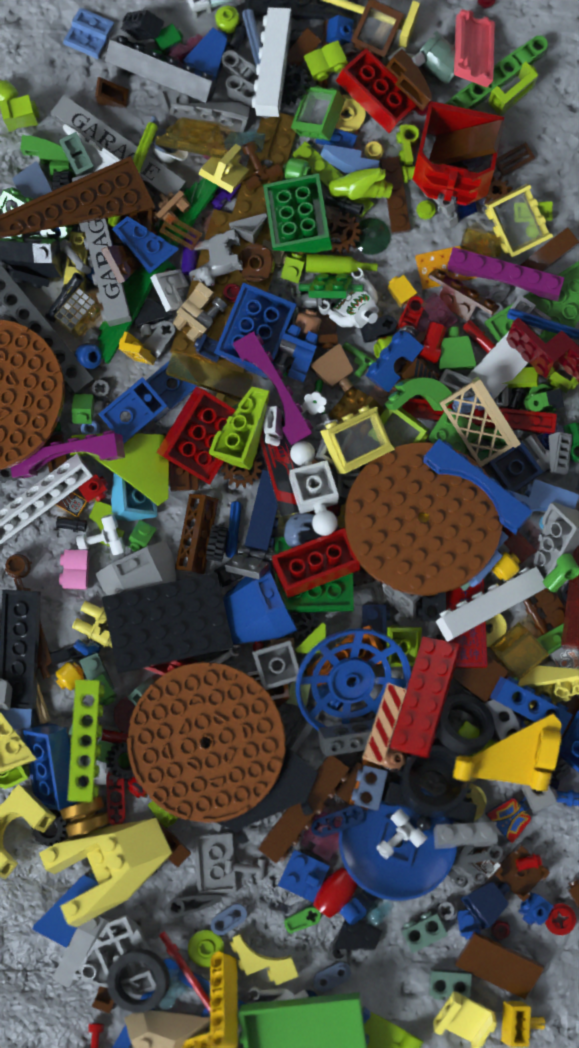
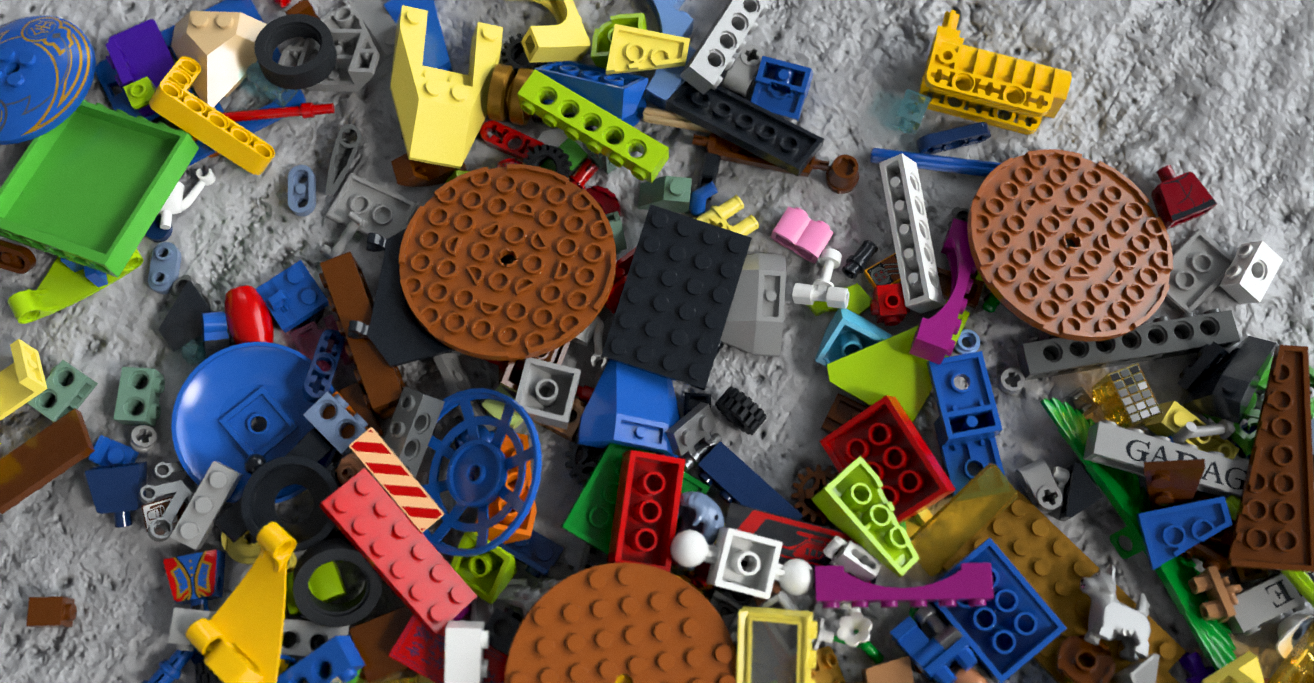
camera: 120 degrees right, 10 degrees down
(68, 674) = (681, 162): yellow head -> none
(74, 282) = (1165, 401): black pin -> none
(82, 409) = (997, 343): bright green brick -> none
(88, 355) = (1065, 376): blue head -> none
(109, 694) = (633, 189): bright green bracket -> none
(134, 349) = (1044, 444): yellow bracket -> none
(141, 536) = (800, 330): bright green bracket -> none
(167, 286) = (1108, 528): white plate -> none
(183, 225) = (1196, 570): clear orange tile -> none
(189, 258) = (1136, 584): dark purple piece -> none
(194, 315) = (1054, 543): tan hips -> none
(199, 533) = (781, 415): reddish brown fence -> none
(203, 946) = (290, 149): lime wheel -> none
(206, 347) = (1002, 531): dark blue bracket -> none
(231, 292) = (1061, 607): dark red plate -> none
(233, 529) = (748, 444): blue axle -> none
(250, 961) = (210, 214): light yellow arch -> none
(300, 920) = (246, 266): bright green piece -> none
(317, 636) = (552, 458): lime slope -> none
(405, 831) = (260, 436): white bar -> none
(495, 929) = (73, 489): dark red plate -> none
(520, 881) = (125, 554): reddish brown panel -> none
(528, 862) = (128, 567): red pin -> none
(535, 909) = (71, 542): blue brick -> none
(568, 924) = (39, 556): red gear -> none

